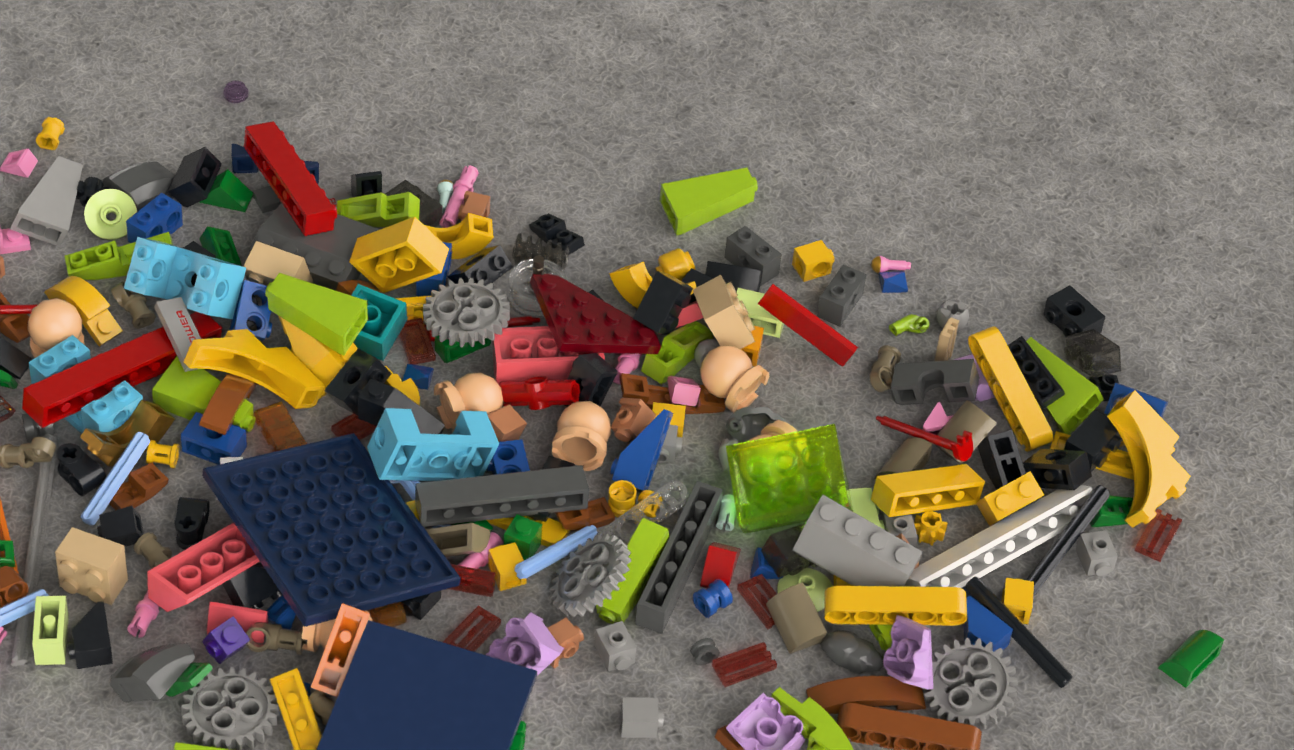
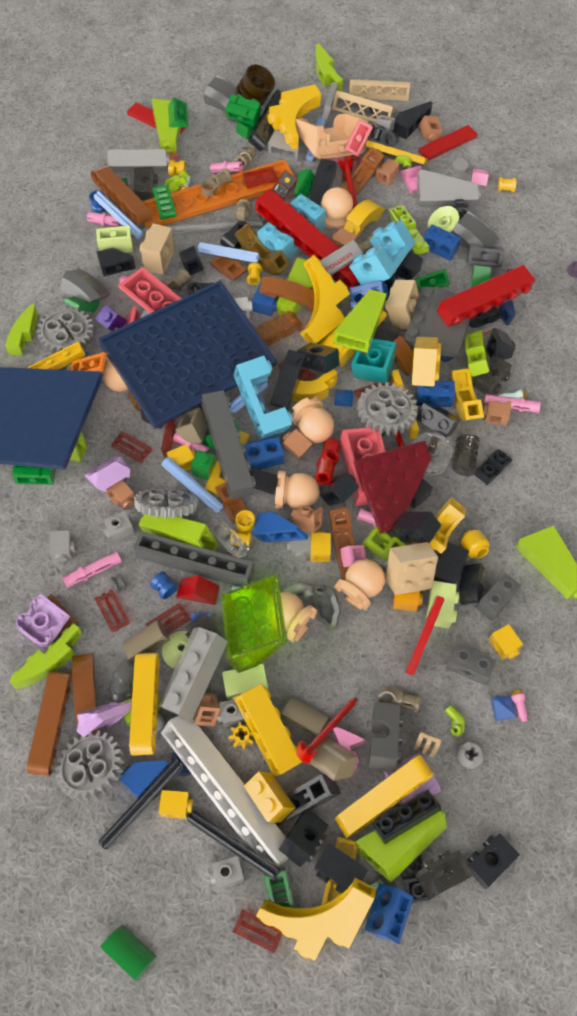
camera: 90 degrees right, 15 degrees up
(126, 328) = (343, 237): none -> nougat brick
(685, 693) = (91, 569): none -> bright pink pin

